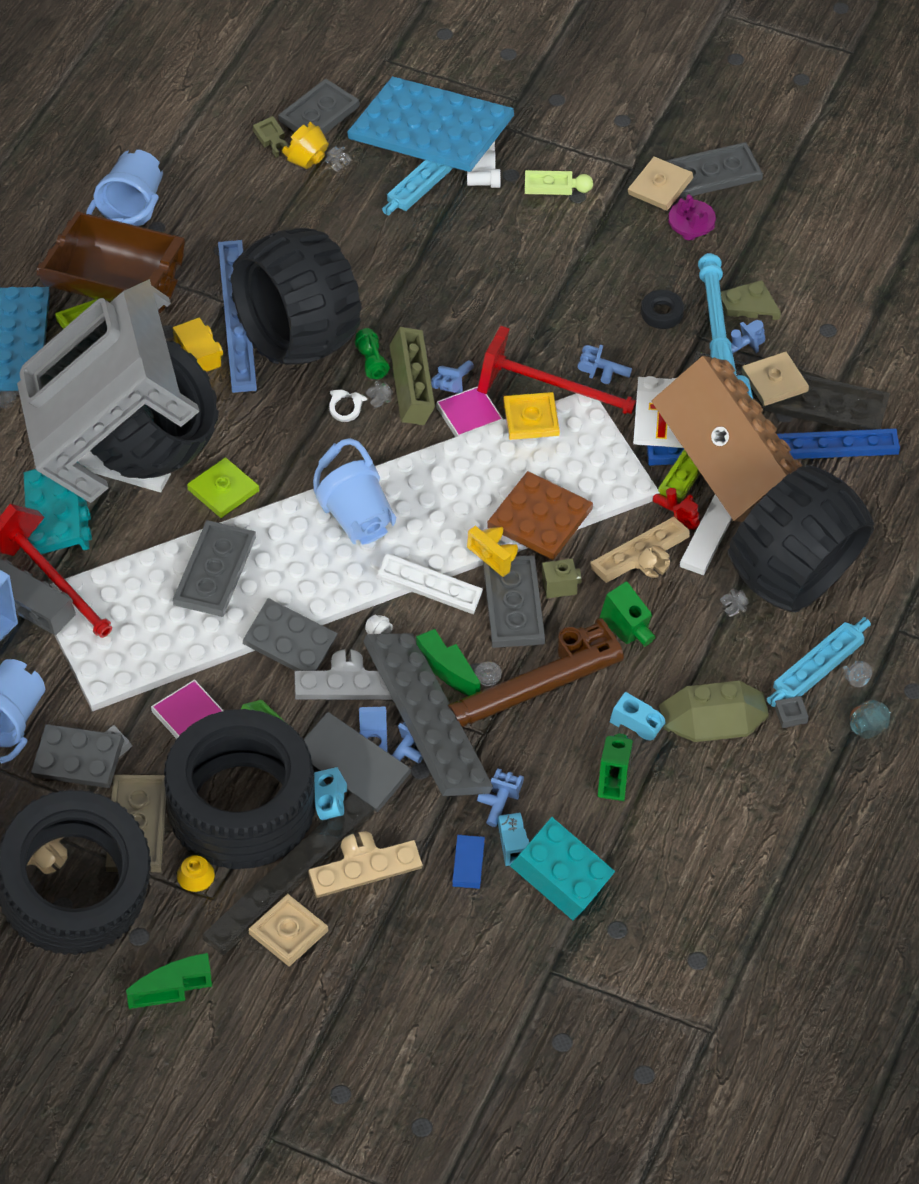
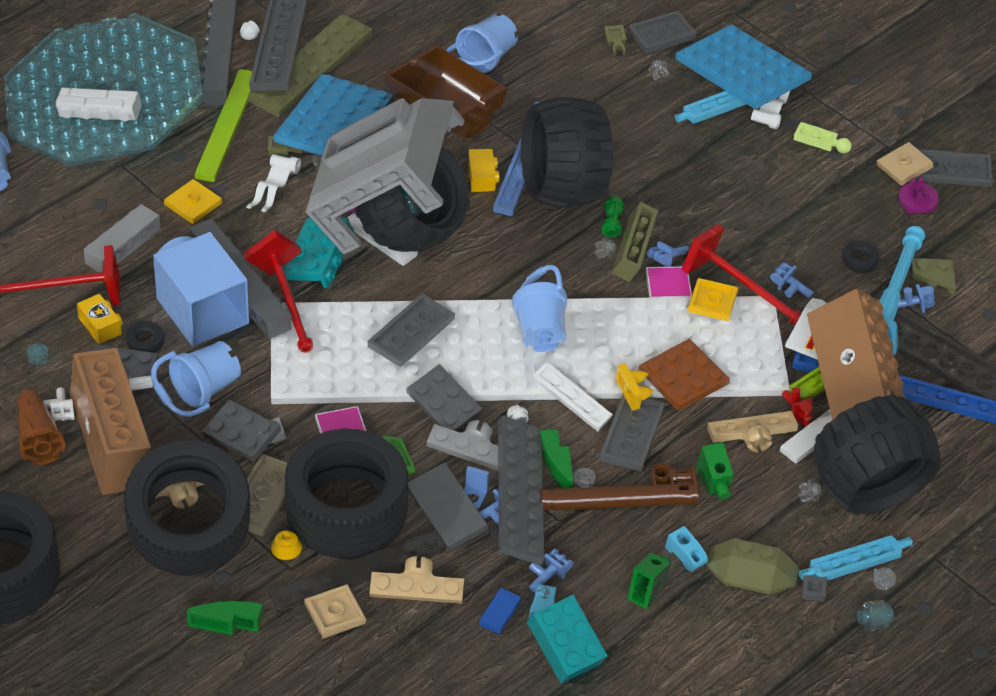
camera: 20 degrees right, 5 degrees down
(223, 487) = (451, 277): lime plate -> none
(306, 146) = (637, 53): yellow cone -> none
(329, 797) = (413, 523): medium azure leg -> none
(357, 399) = (574, 238): white piece -> none
(560, 578) = (677, 426): olive brick -> none
(775, 378) = (924, 335): tan plate -> none

